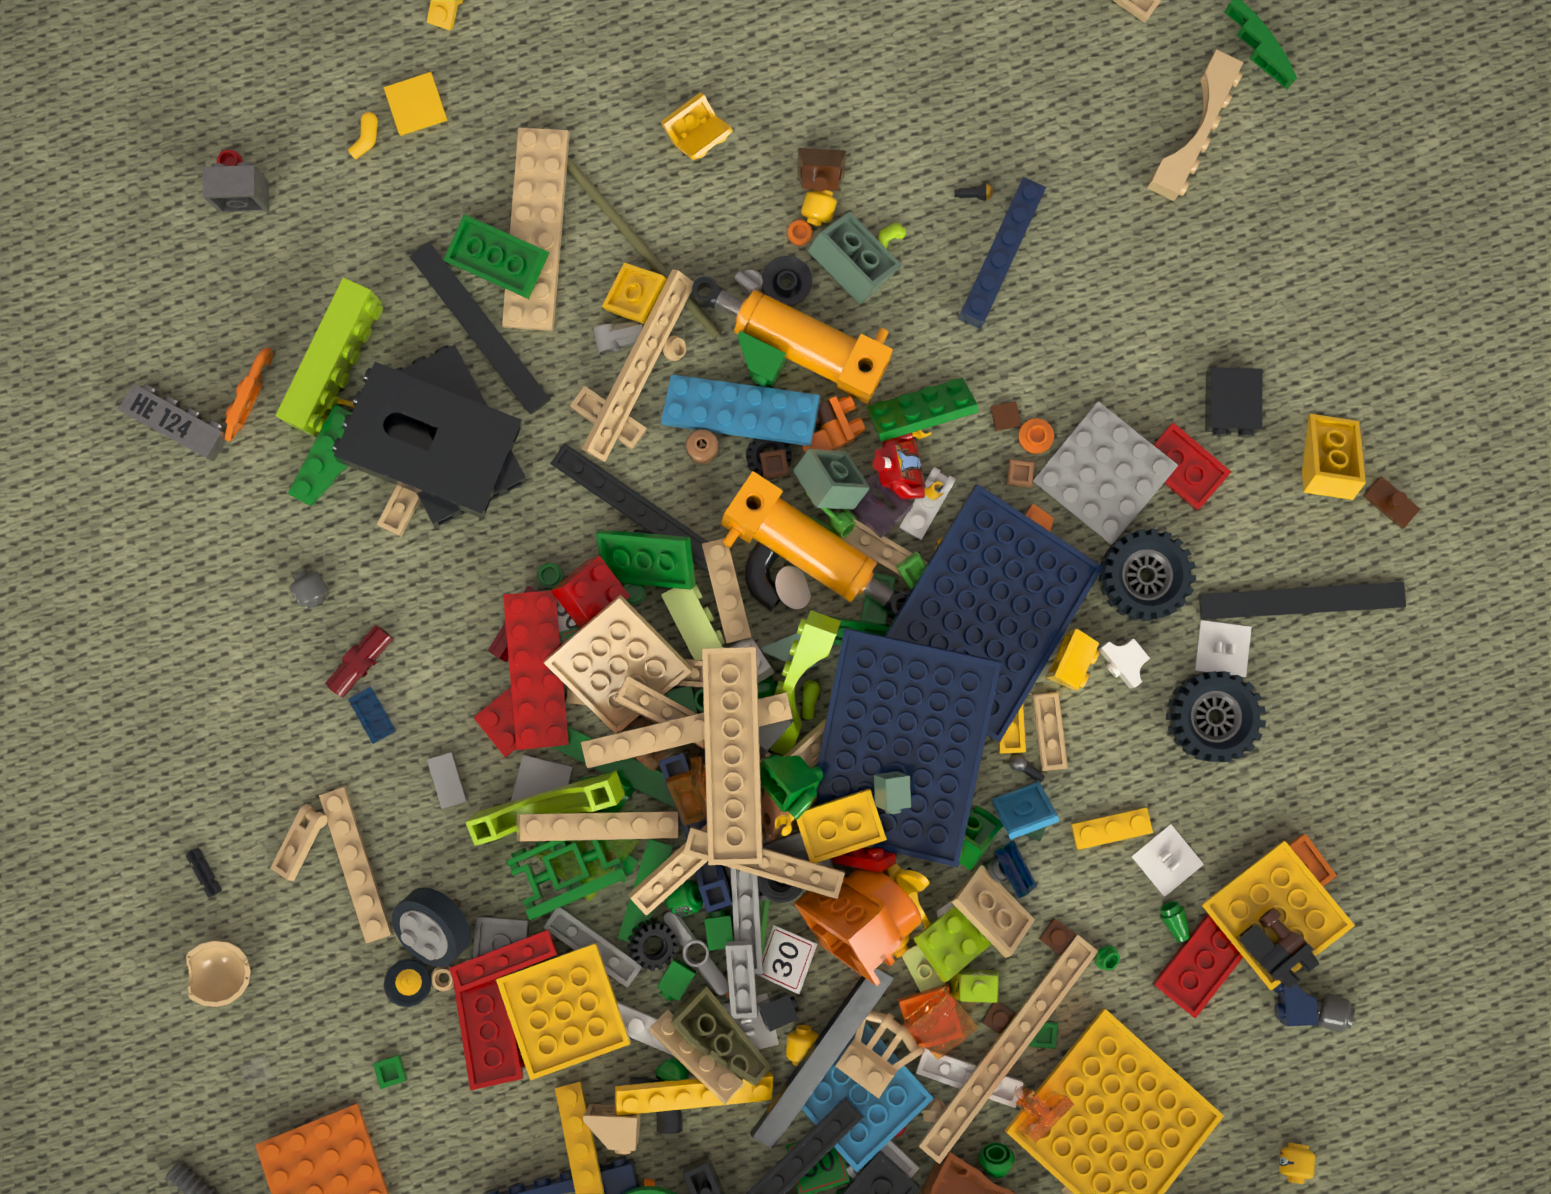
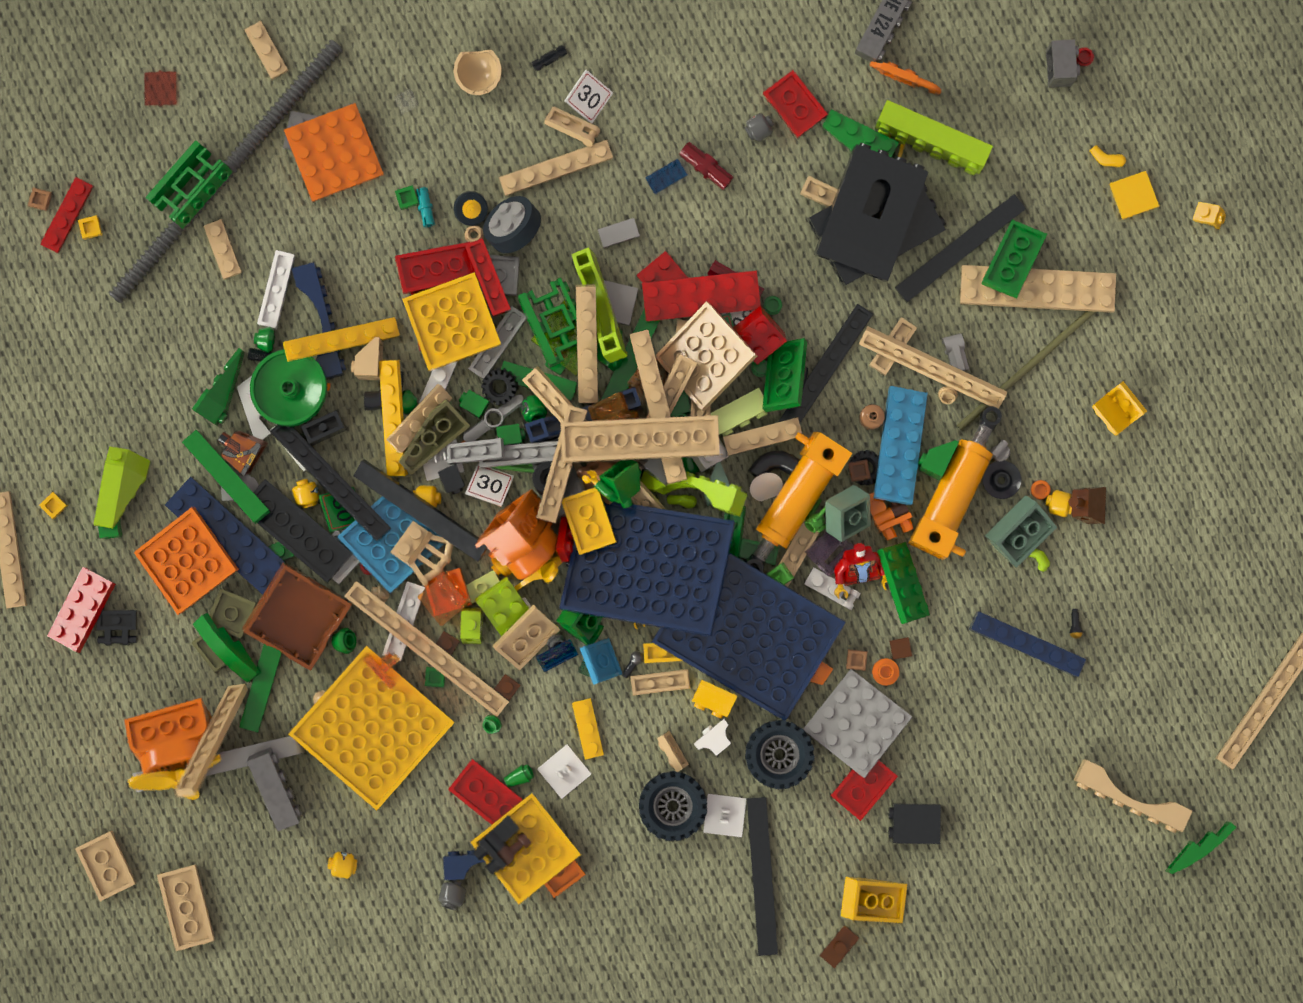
camera: 90 degrees right, 0 degrees up
(258, 819) = (588, 96): none -> white piece
(279, 541) = (795, 104): none -> red plate
(404, 1045) = (425, 207): none -> teal pin
(634, 293) = (989, 363): yellow plate -> none
(892, 791) = (614, 557): sand green brick -> none
(1142, 715) = (673, 752): none -> tan plate

